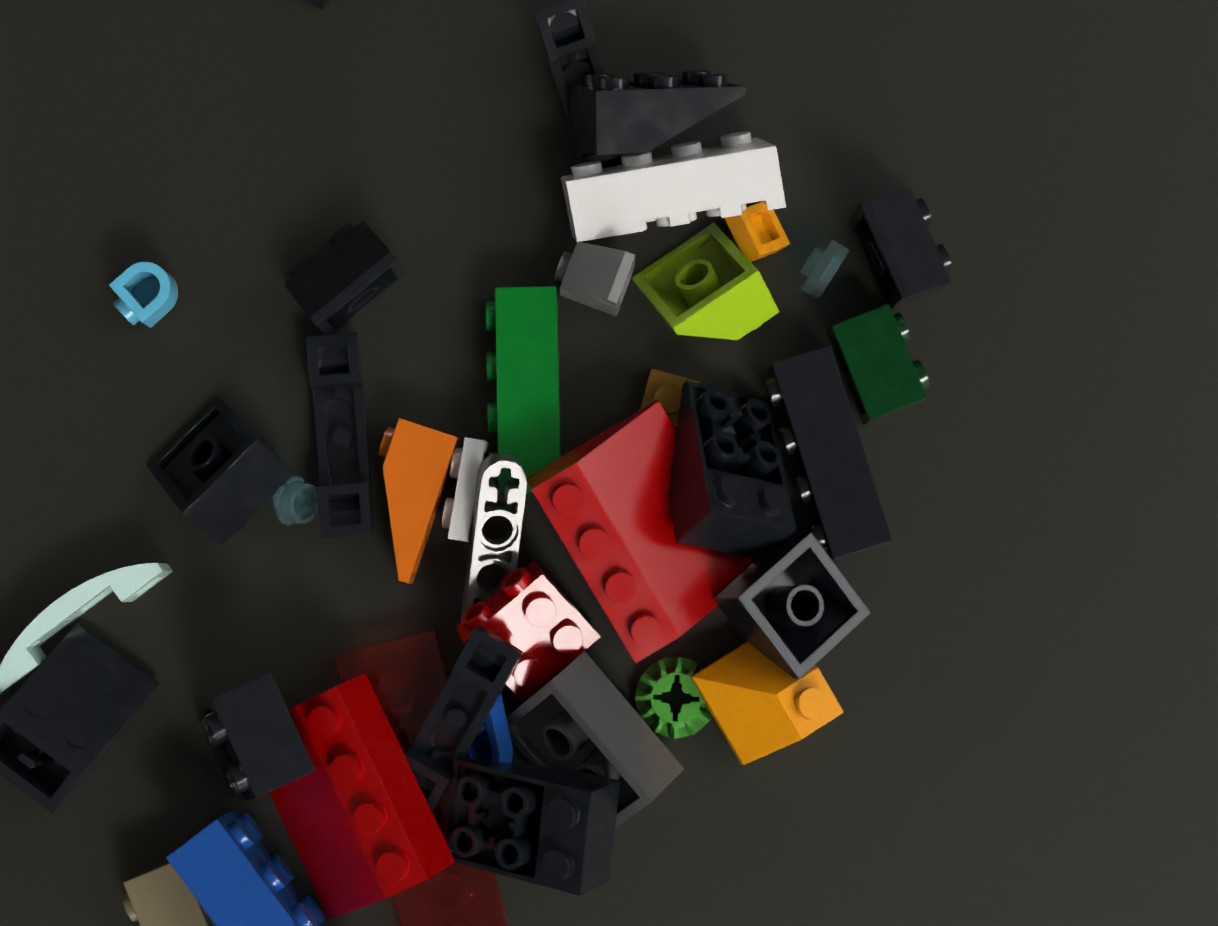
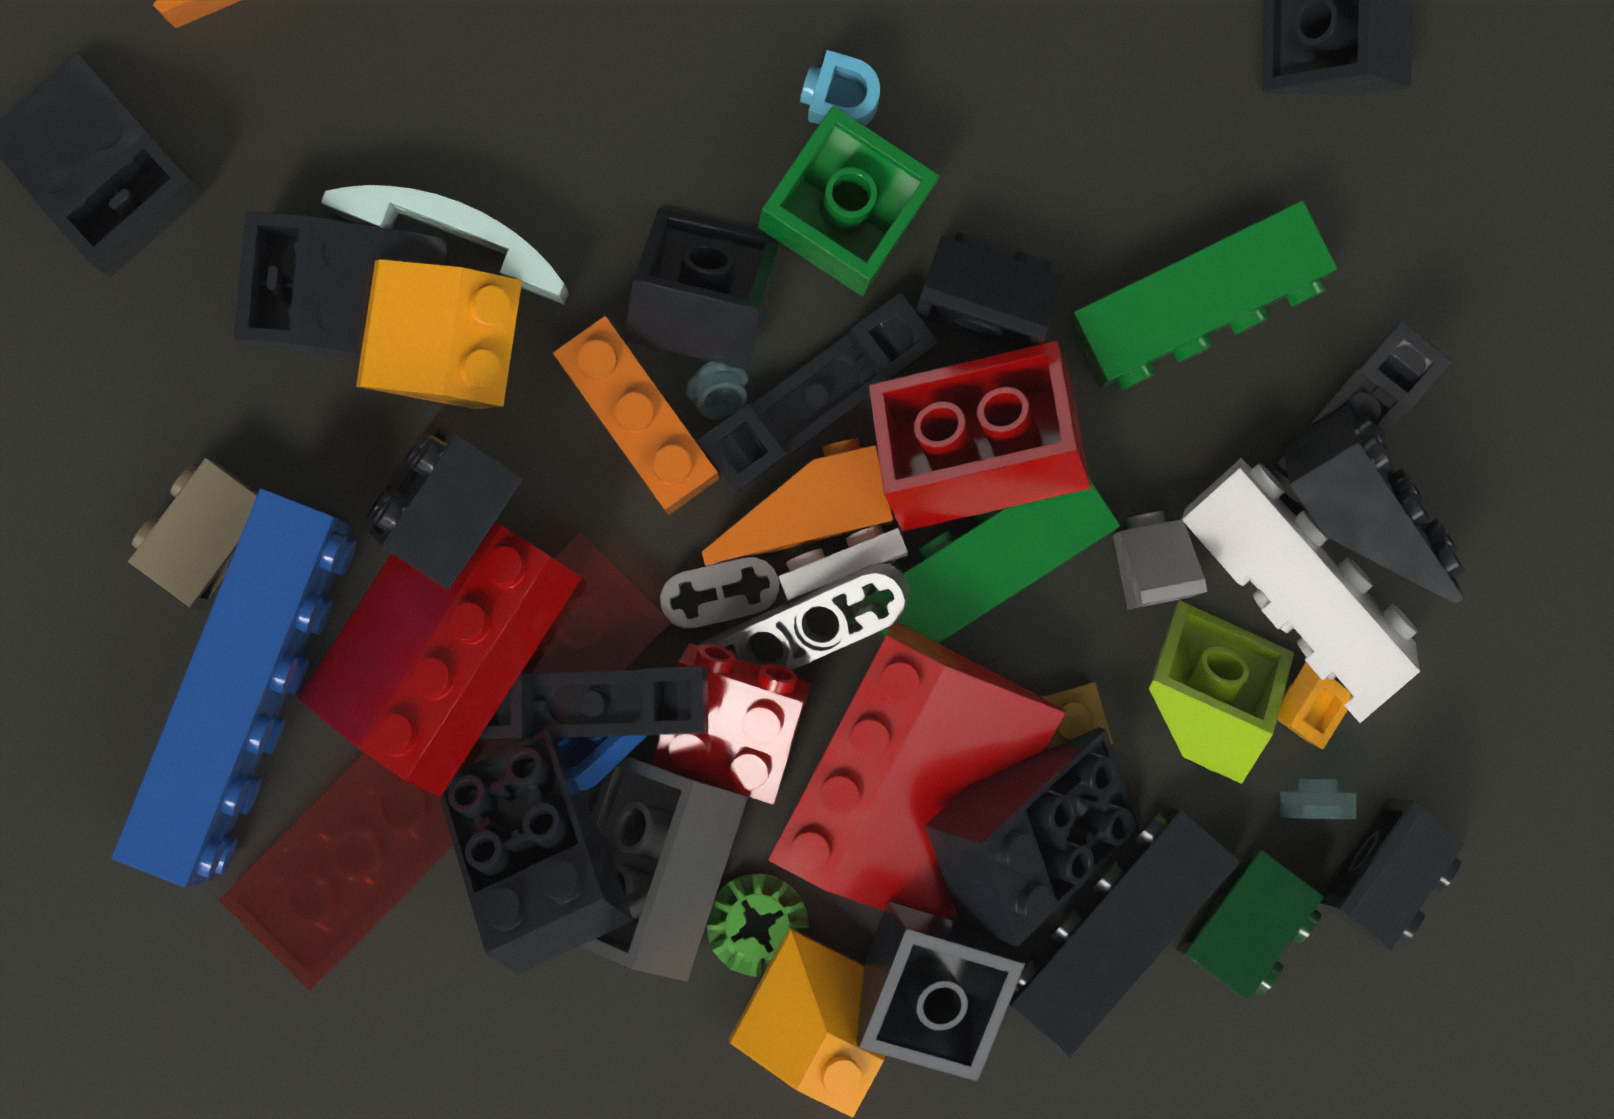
camera: 55 degrees right, 0 degrees up
(138, 669) = (439, 333): none -> light orange slope
(220, 334) = (847, 201): none -> green slope
(278, 568) = (636, 415): none -> orange brick
(423, 582) = (724, 608): none -> light grey beam
(435, 135) = (1202, 295): none -> green brick
(436, 344) = (979, 436): none -> red brick

